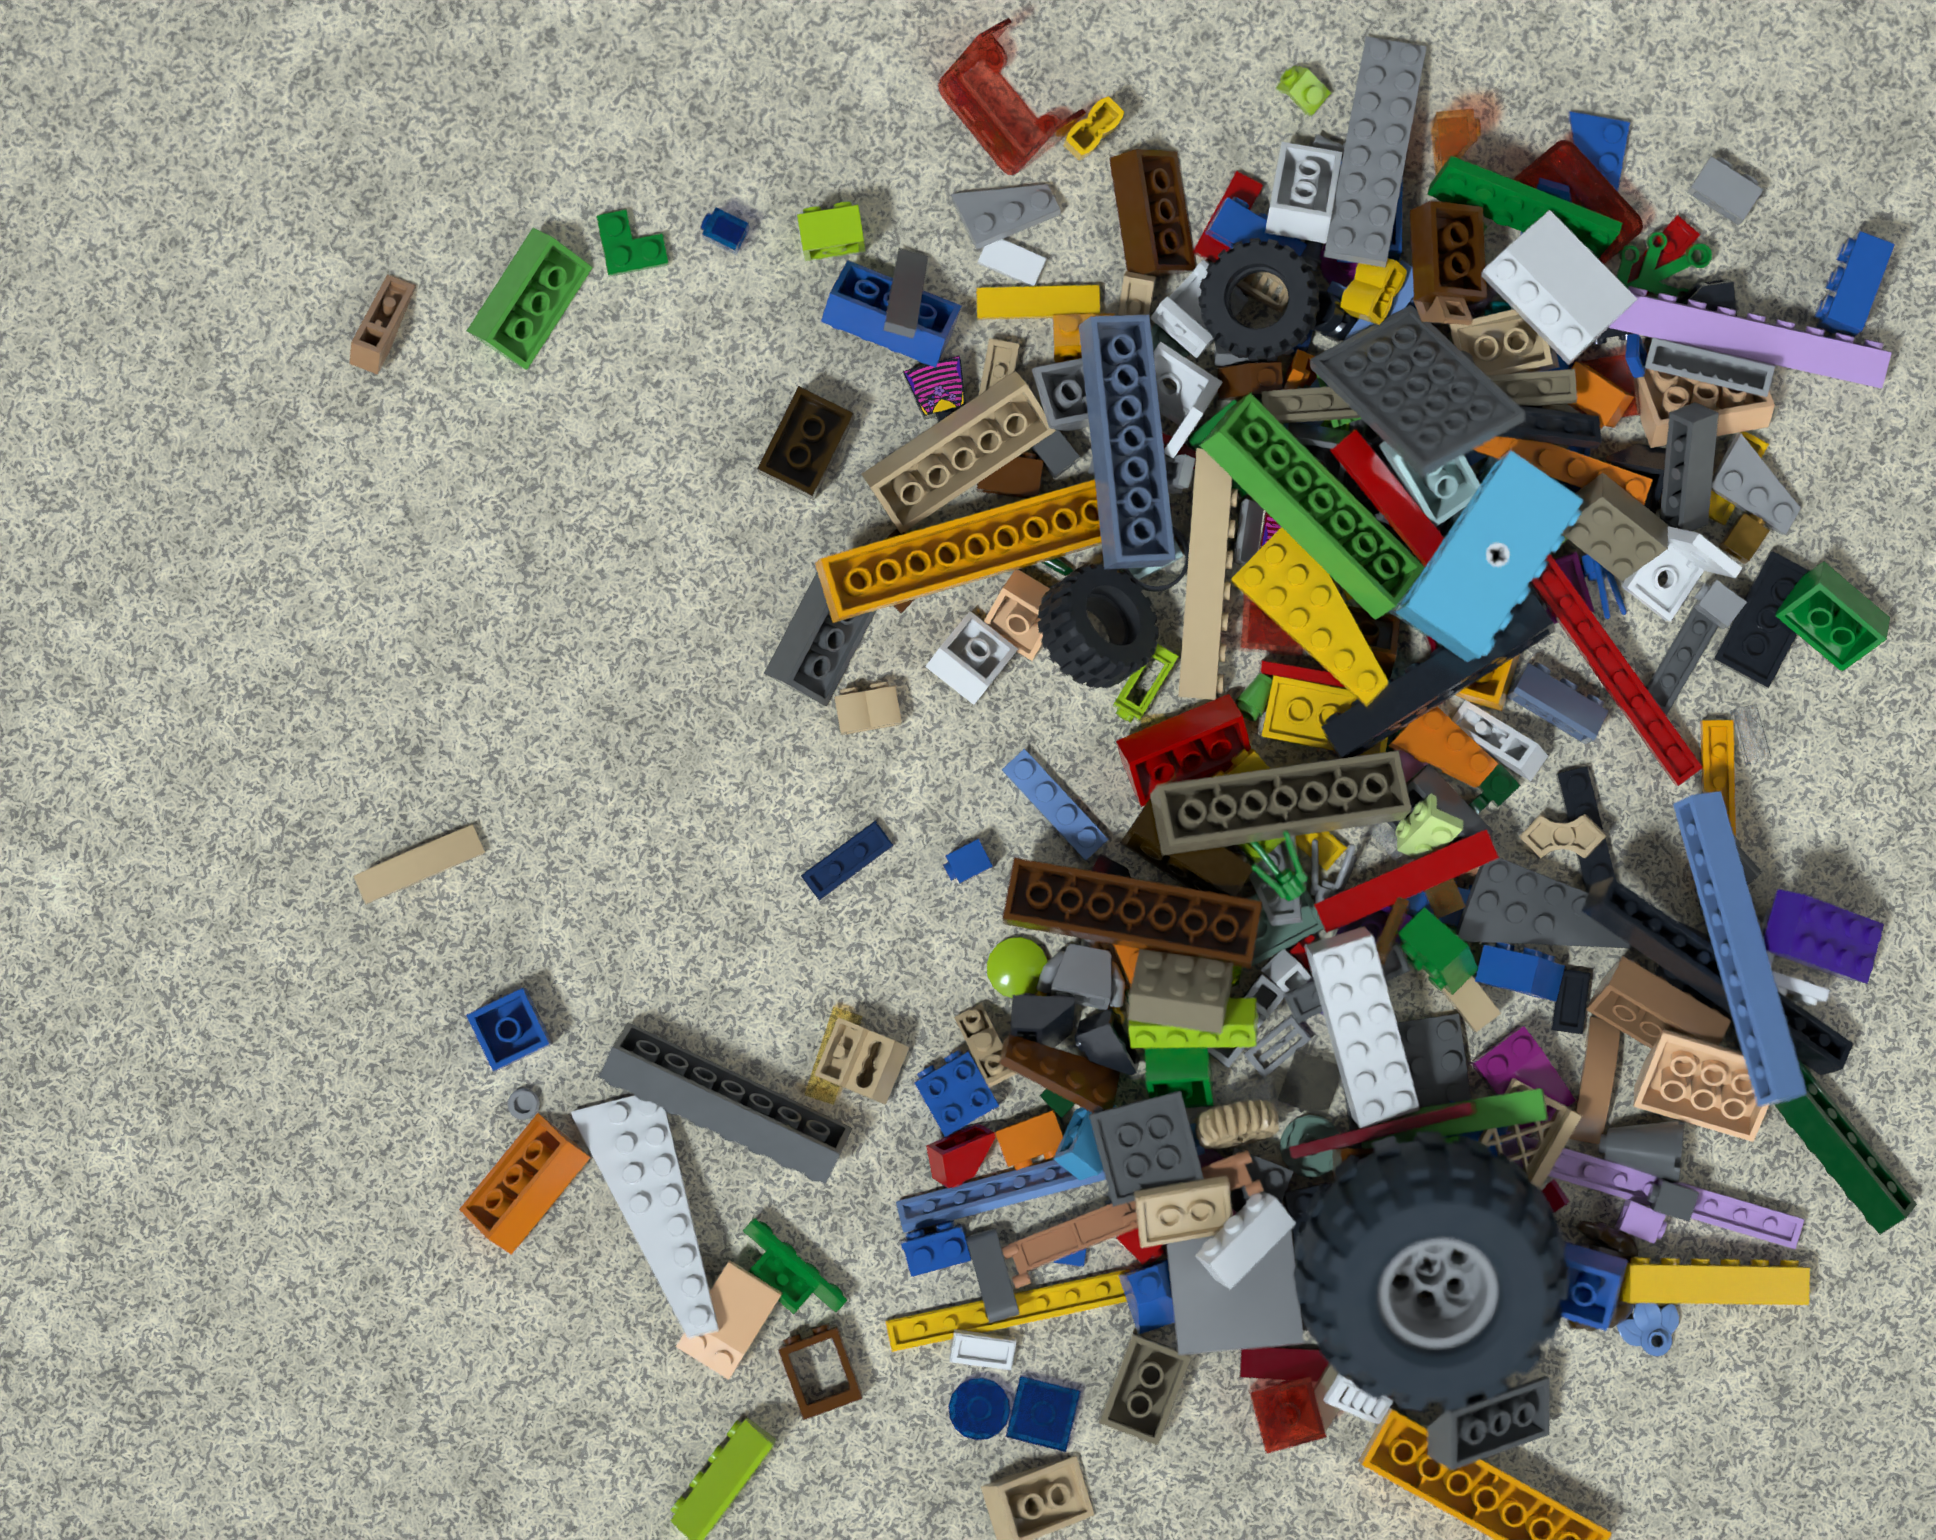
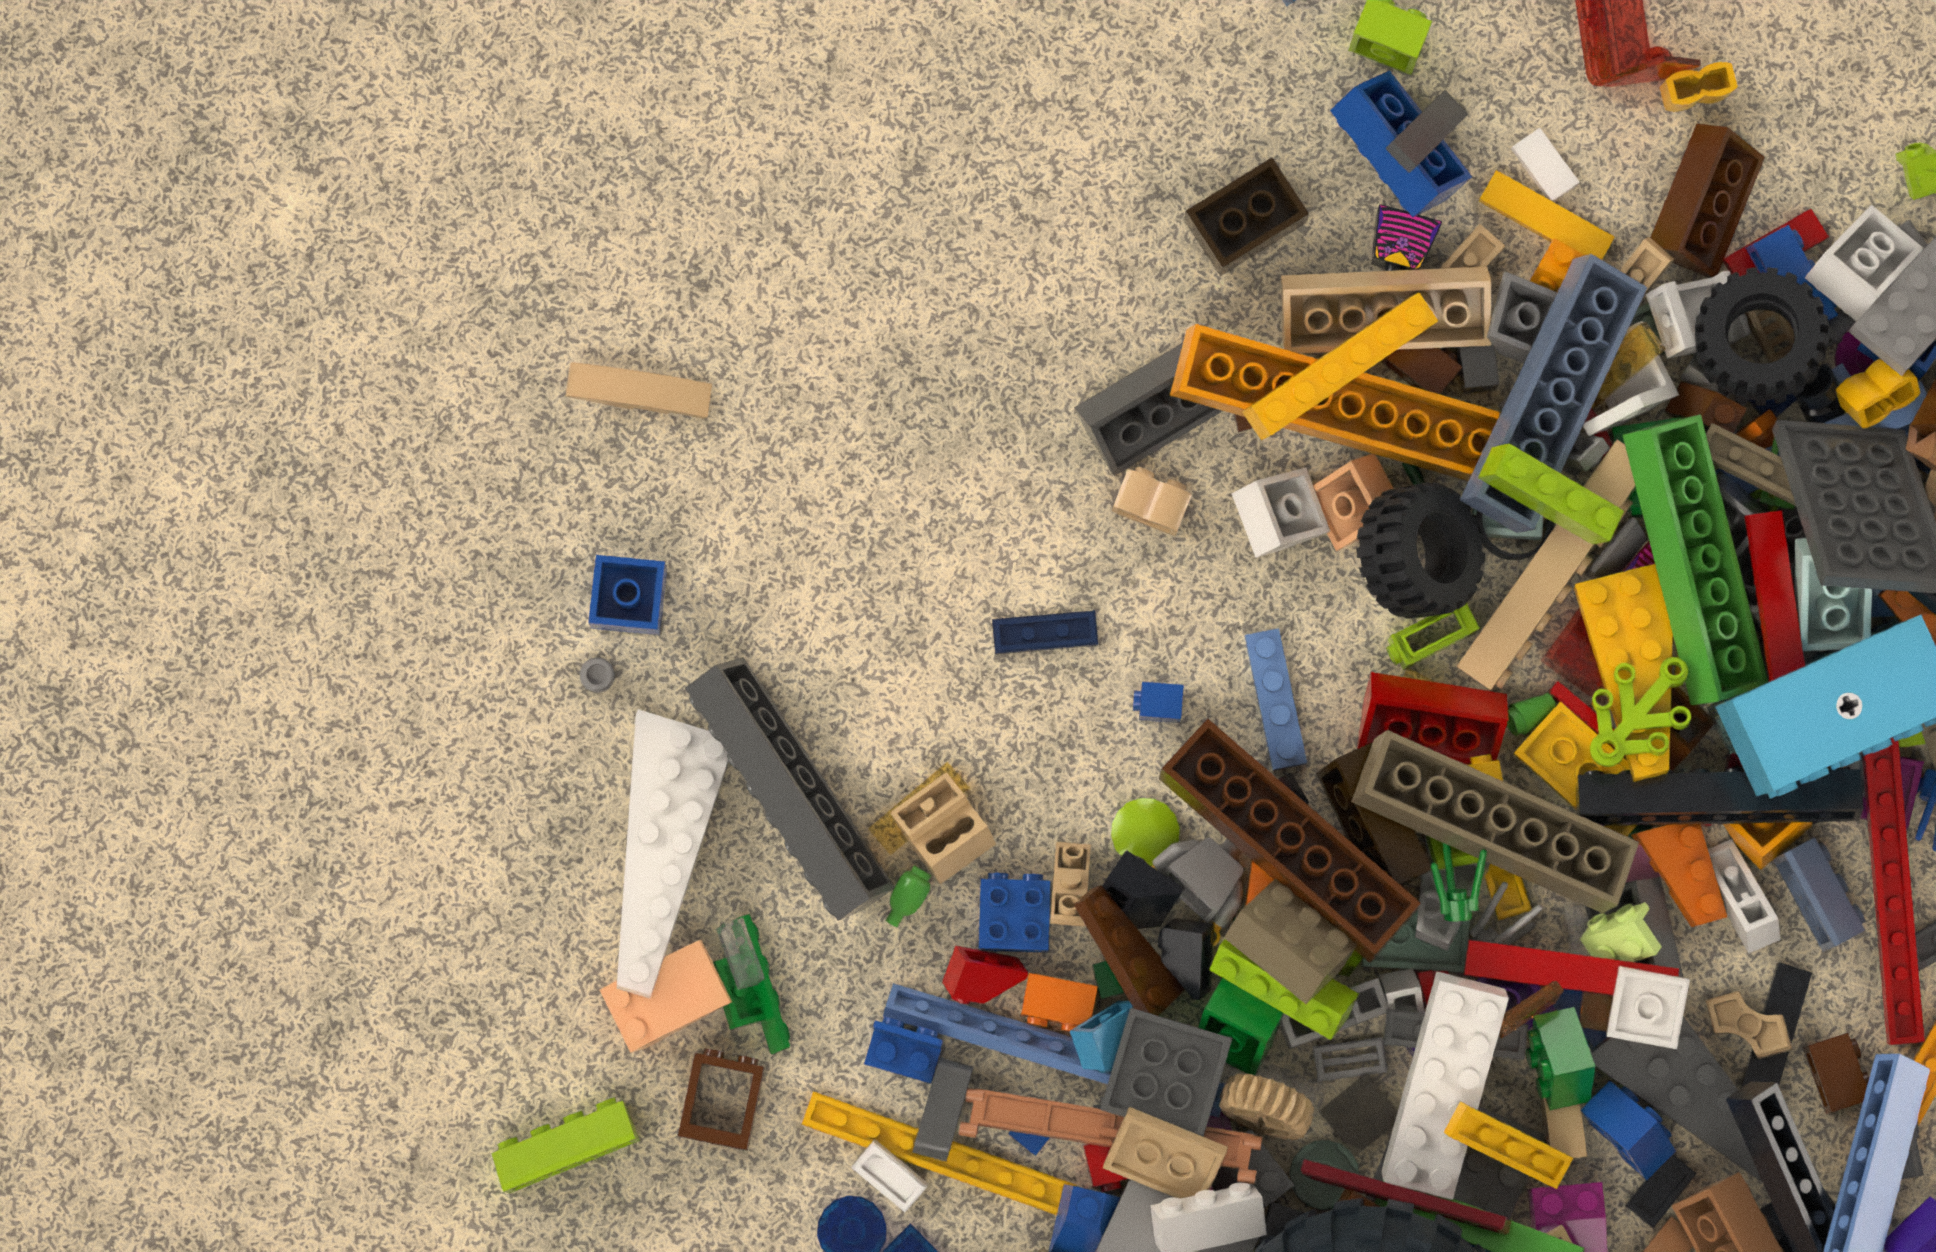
camera: 30 degrees right, 5 degrees down
(524, 1184) = (551, 750): orange slope -> none
(766, 1252) = (740, 953): none -> clear piece
(866, 1127) = (908, 894): none -> bright green plant
(951, 523) = (1340, 366): none -> yellow brick
(1003, 212) = (1565, 116): light grey wing -> none
(1170, 370) = (1633, 355): none -> clear yellow tile
(1172, 525) = (1550, 494): none -> lime brick
(1339, 656) = (1636, 716): none -> lime plant
(1437, 1044) = (1508, 1145): none -> yellow plate
(1480, 874) = (1647, 1007): none -> white tile
(1495, 788) = (1710, 940): dark green plate -> none
(1651, 831) = (1837, 1072): none -> reddish brown brick

